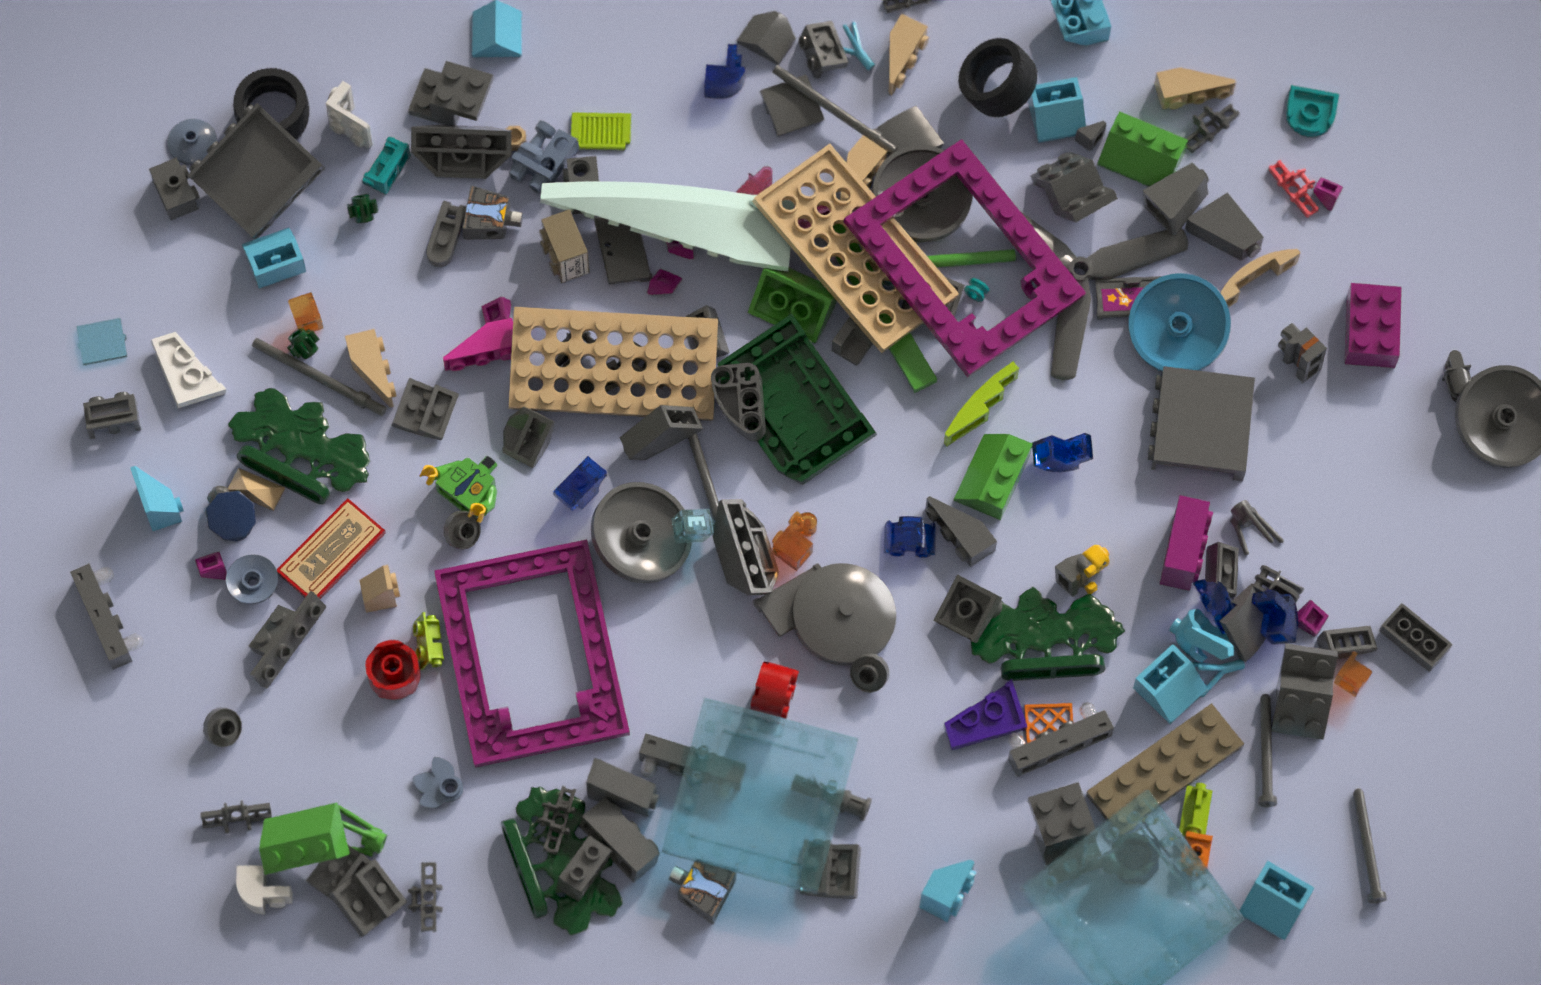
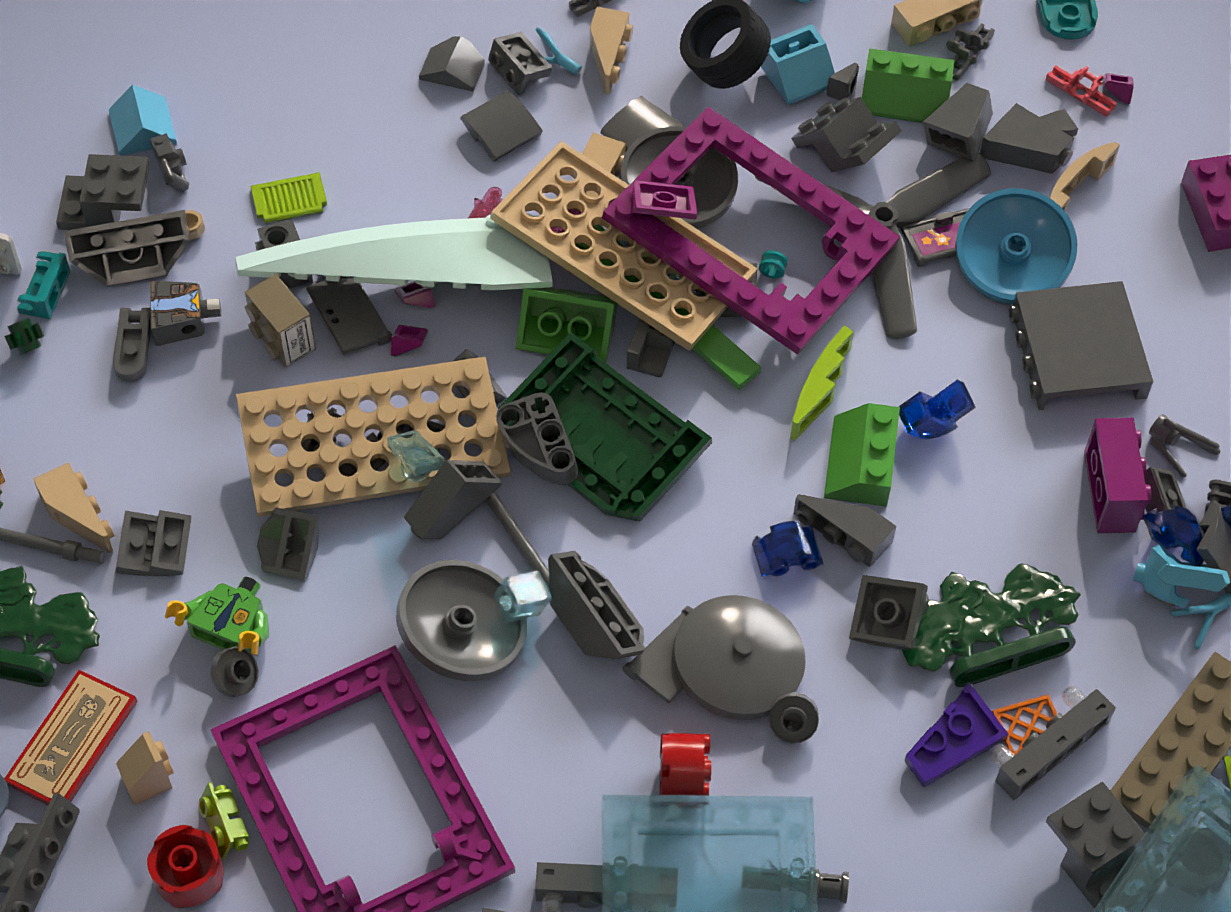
camera: 15 degrees left, 10 degrees down
(485, 345) = (211, 452): dark pink slope -> none
(496, 310) = (214, 414): magenta slope -> none
(512, 75) = (170, 161): none -> dark grey piece
(543, 164) = (224, 243): sand blue hips -> none
(581, 484) = (371, 582): clear blue brick -> none
(639, 391) = (416, 455): none -> clear light blue tile
(726, 80) = (417, 114): clear blue brick -> none
(791, 544) = (652, 589): clear orange brick -> none
(874, 135) = (550, 115): dark grey bar -> none
(894, 222) = (663, 200): none -> magenta slope
(973, 258) = (762, 232): bright green piece -> none
(1079, 569) = (1000, 537): piece -> none
(1170, 684) = (1160, 640): medium azure slope -> none
(1261, 215) = (1062, 121): none -> dark grey tile
(1302, 350) = (1162, 242): dark grey hips -> none

